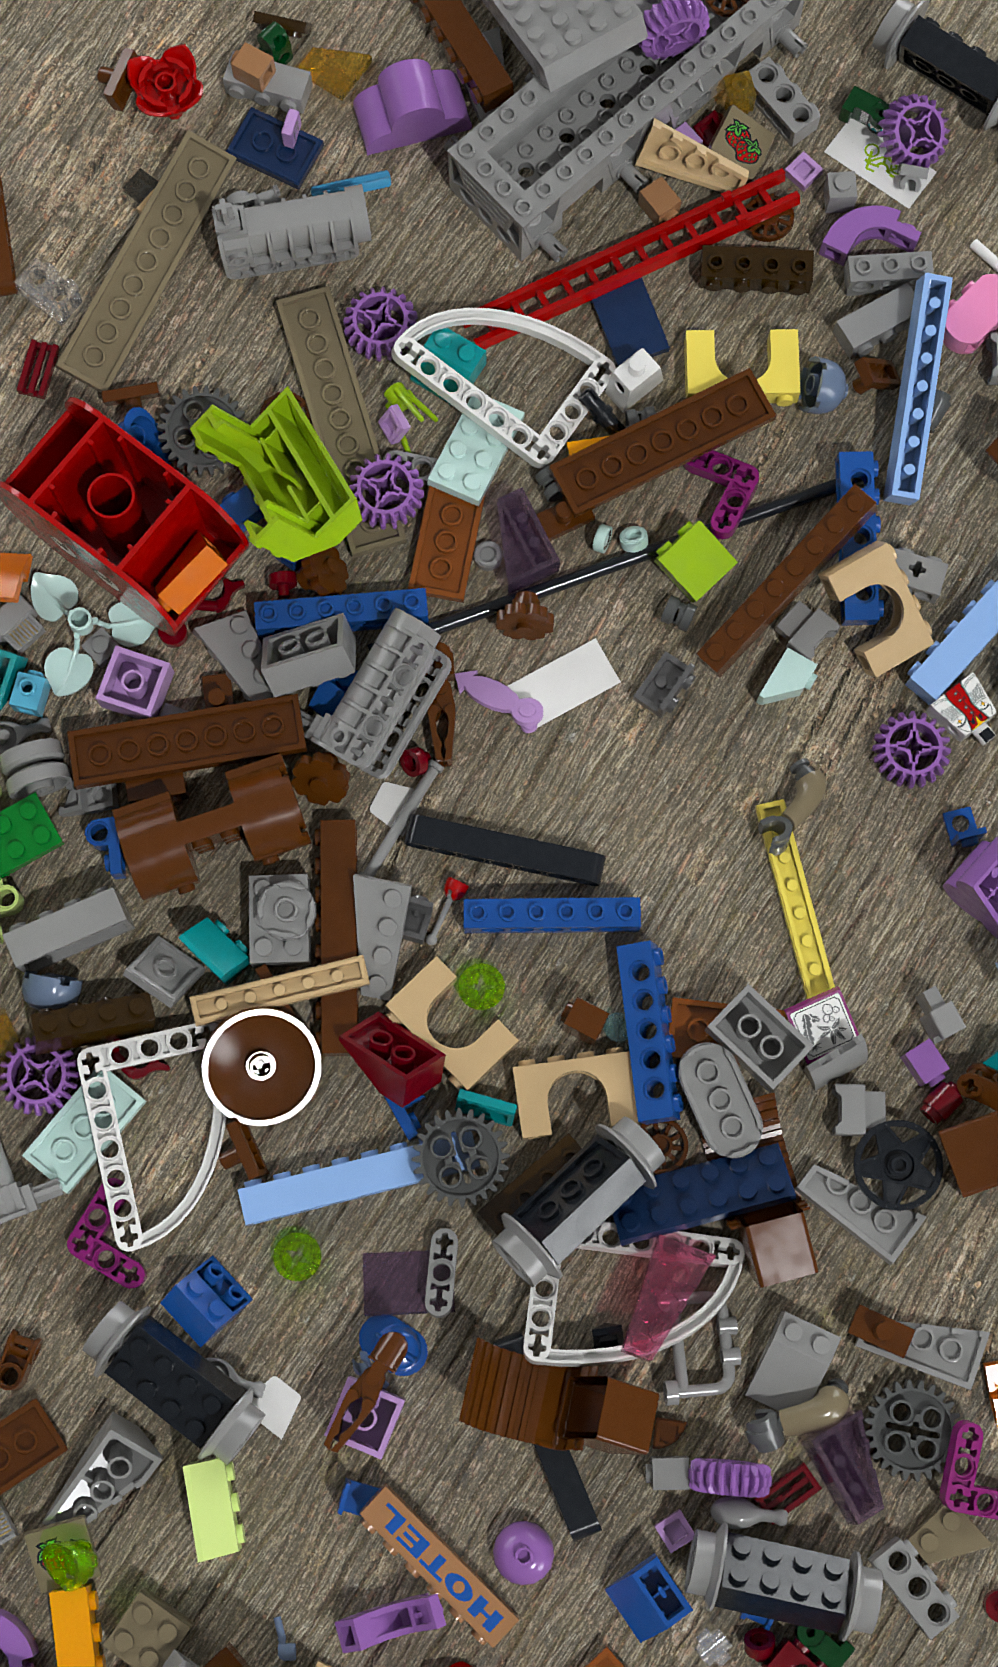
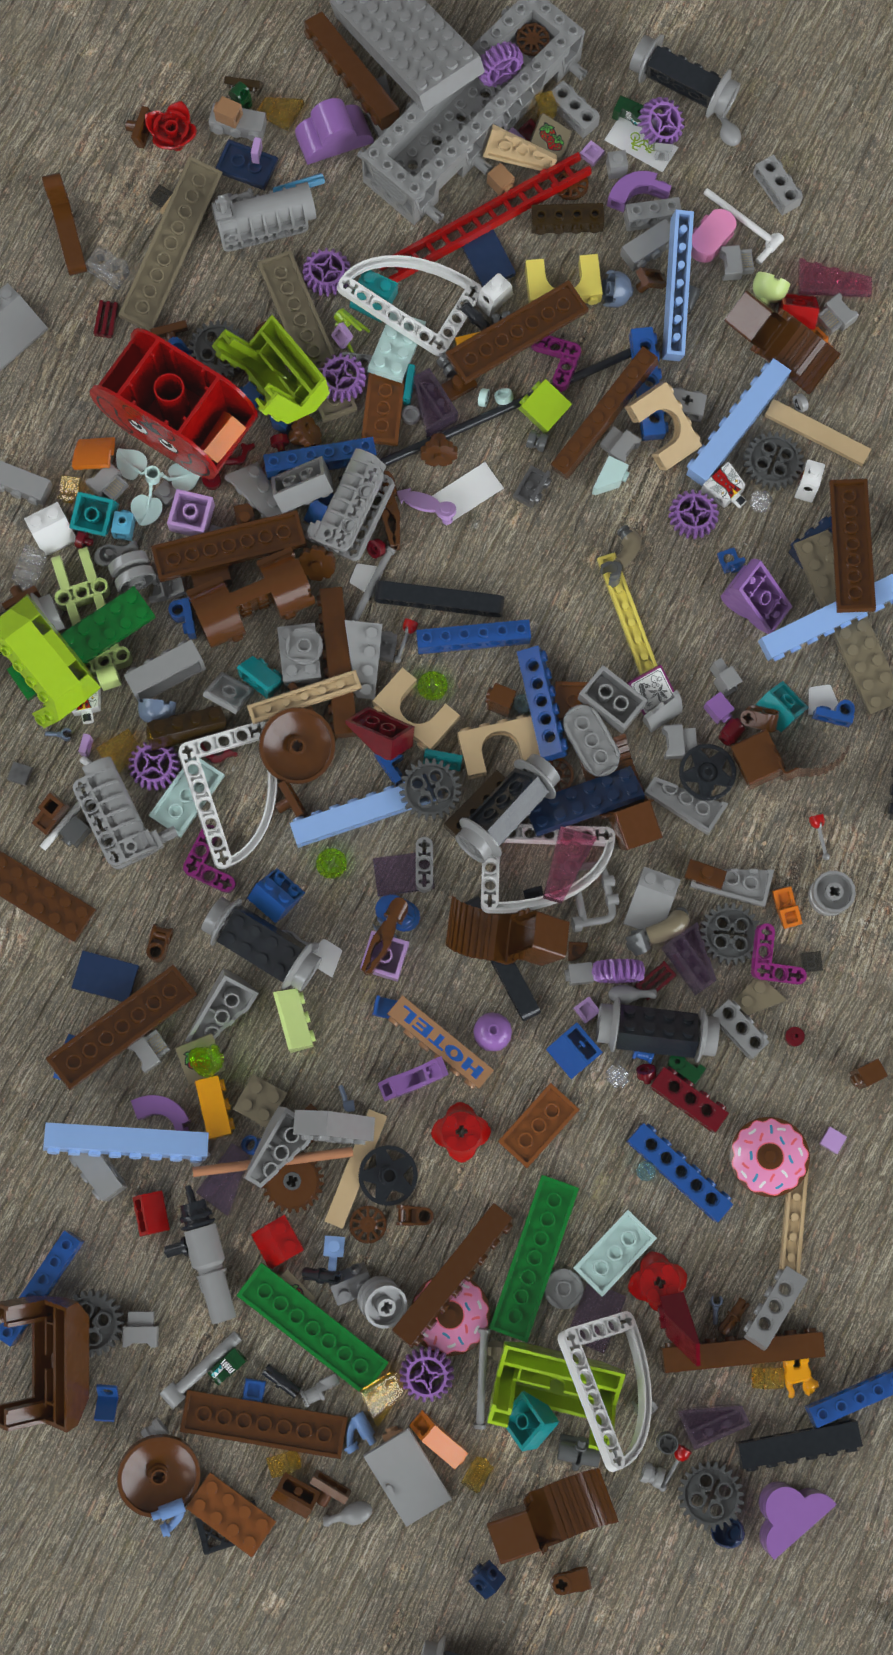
camera: 10 degrees left, 0 degrees up
(490, 509) = (409, 384): none -> teal tile

